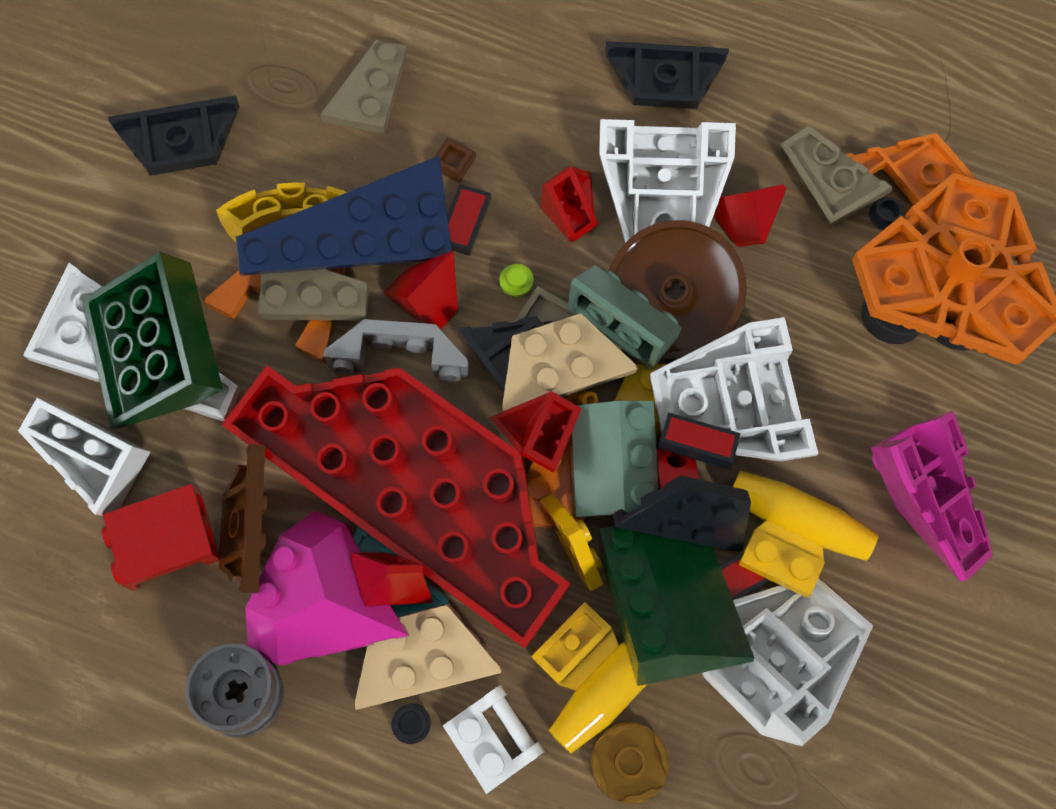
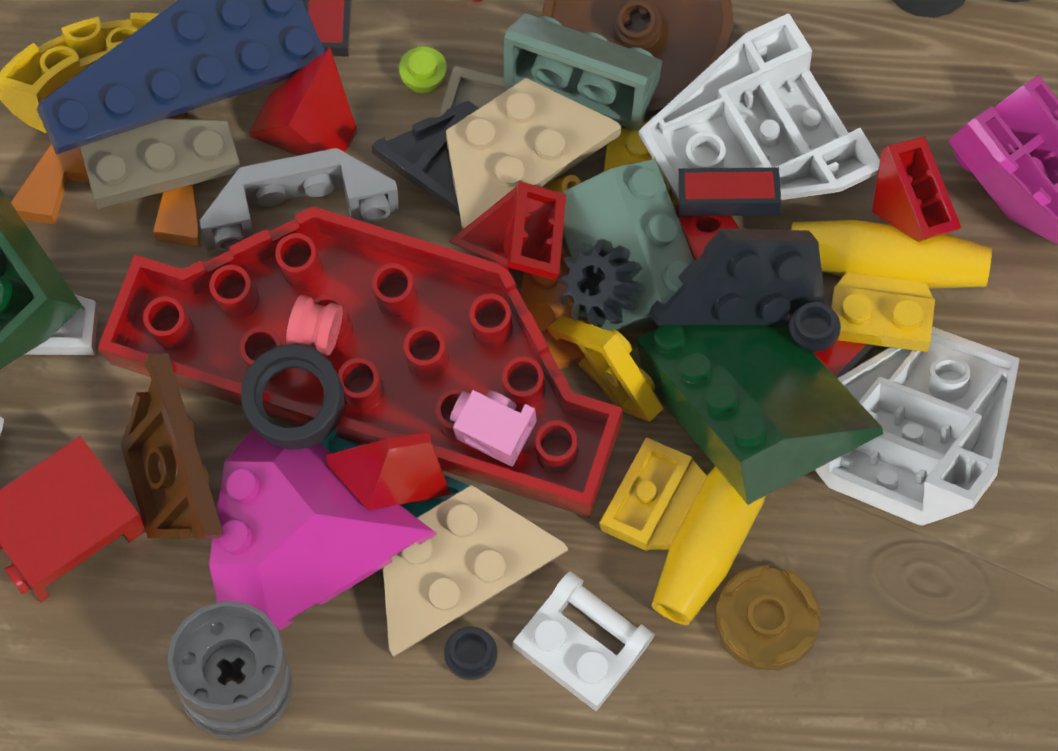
camera: 15 degrees left, 5 degrees down
(310, 499) = (276, 361): none -> black tyre
(370, 457) = (314, 324): none -> coral wheel
(471, 570) = (492, 424): none -> bright pink brick
(586, 497) = (585, 277): none -> black gear
(730, 558) = (814, 327): none -> black plate
(833, 479) = (913, 192): none -> red slope

